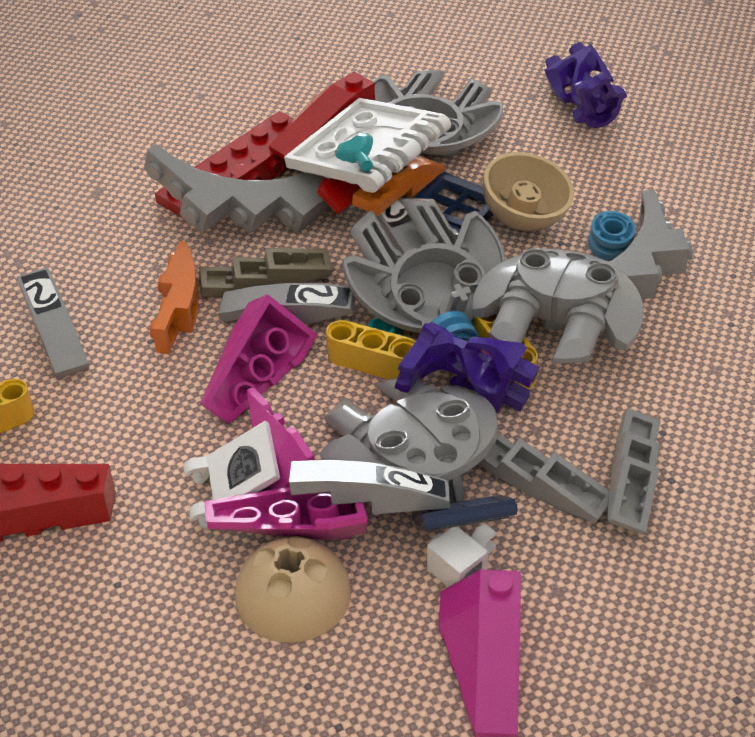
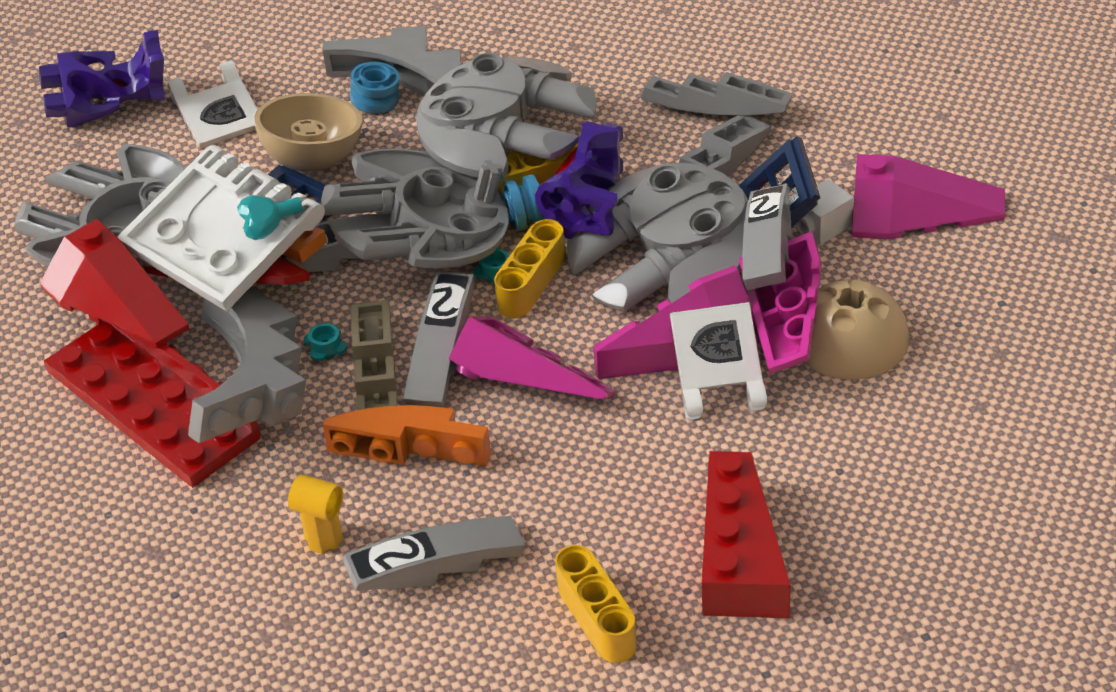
camera: 85 degrees left, 0 degrees up
(89, 247) = (318, 509): none -> yellow piece
(293, 239) = (324, 341): none -> teal plate
(582, 157) = (218, 111): none -> white flag

